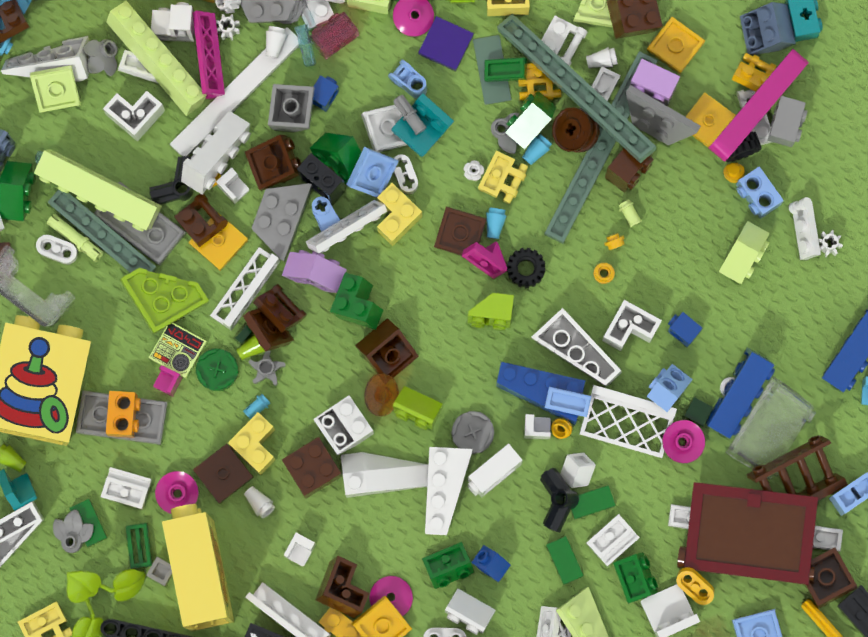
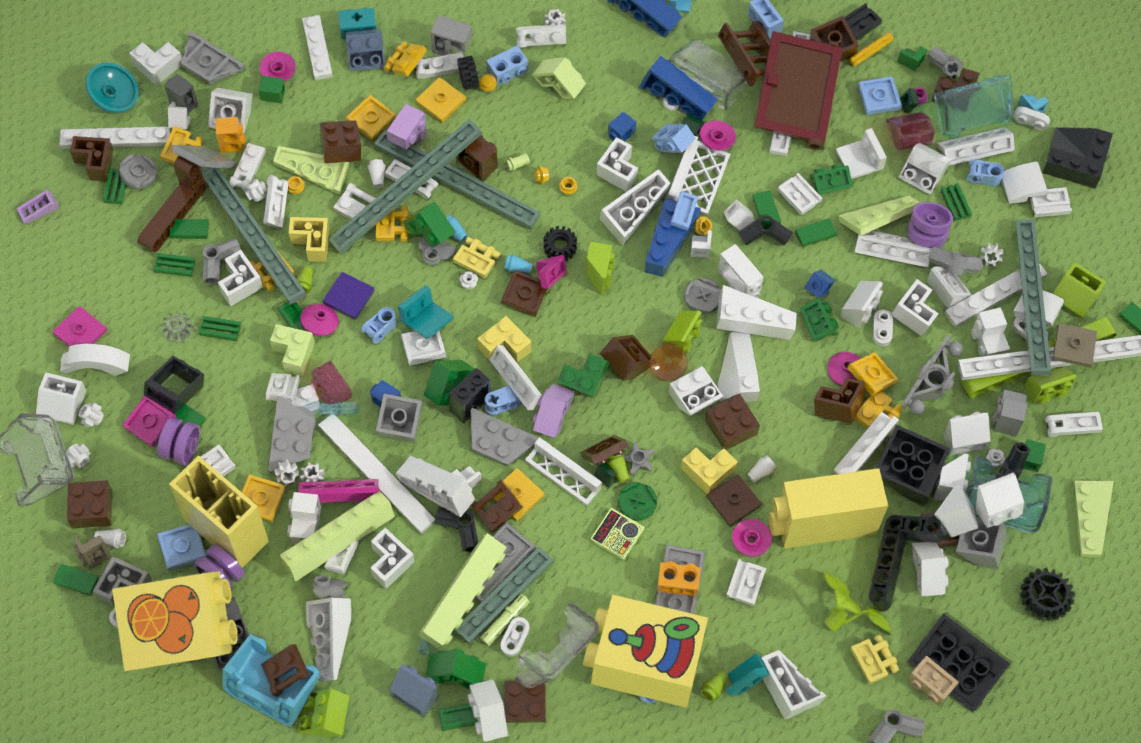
camera: 90 degrees left, 15 degrees down
(55, 88) = (357, 629): yellowish green tile -> none
(72, 528) = (783, 629): light grey plate -> none
(90, 517) = (777, 619): green tile -> none
(141, 564) = (793, 583): green tile -> none
(160, 571) = (823, 555): light grey plate -> none
(162, 297) = (569, 541): lime plate -> none
(167, 381) = (647, 541): dark pink panel -> none
(257, 406) = (673, 466): medium azure pin -> none
(273, 161) = (447, 441): reddish brown plate -> none
(274, 40) = (332, 432): white cone -> none
(276, 312) = (585, 441): reddish brown plate -> none
(299, 549) = (803, 439): white panel -> none
(372, 172) = (466, 353): light blue plate -> none
(409, 114) = (415, 321): light grey axle -> none
(409, 172) = (466, 335): white beam -> none
(487, 49) = (376, 262): sand green sticker -> none
(505, 69) = (379, 247): green tile -> none
(575, 130) = (449, 185): reddish brown wheel -> none
(658, 118) = (438, 126): light grey wing -> none
(694, 585) = (839, 135): yellow plate -> none
(758, 105) = (437, 49): dark pink beam -> none

